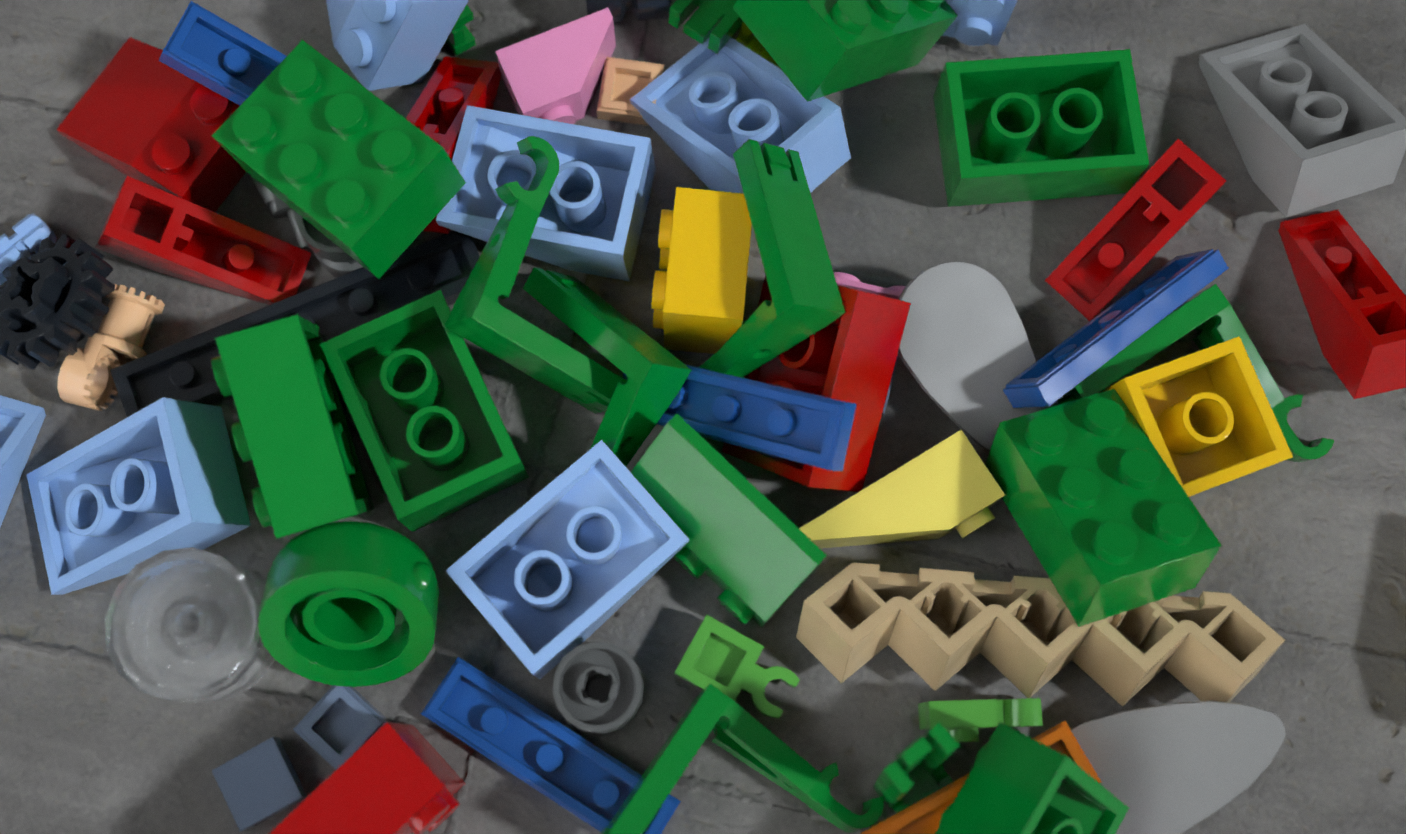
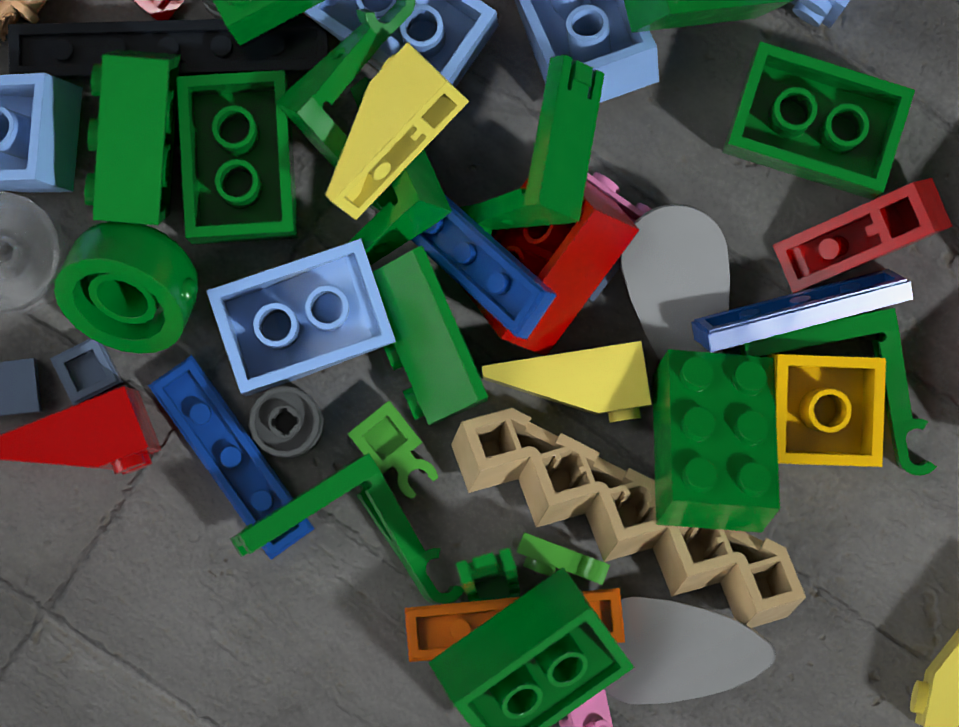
camera: 25 degrees right, 10 degrees up
(589, 288) = (395, 122): none -> light yellow slope
(706, 263) = (495, 137): yellow brick -> none

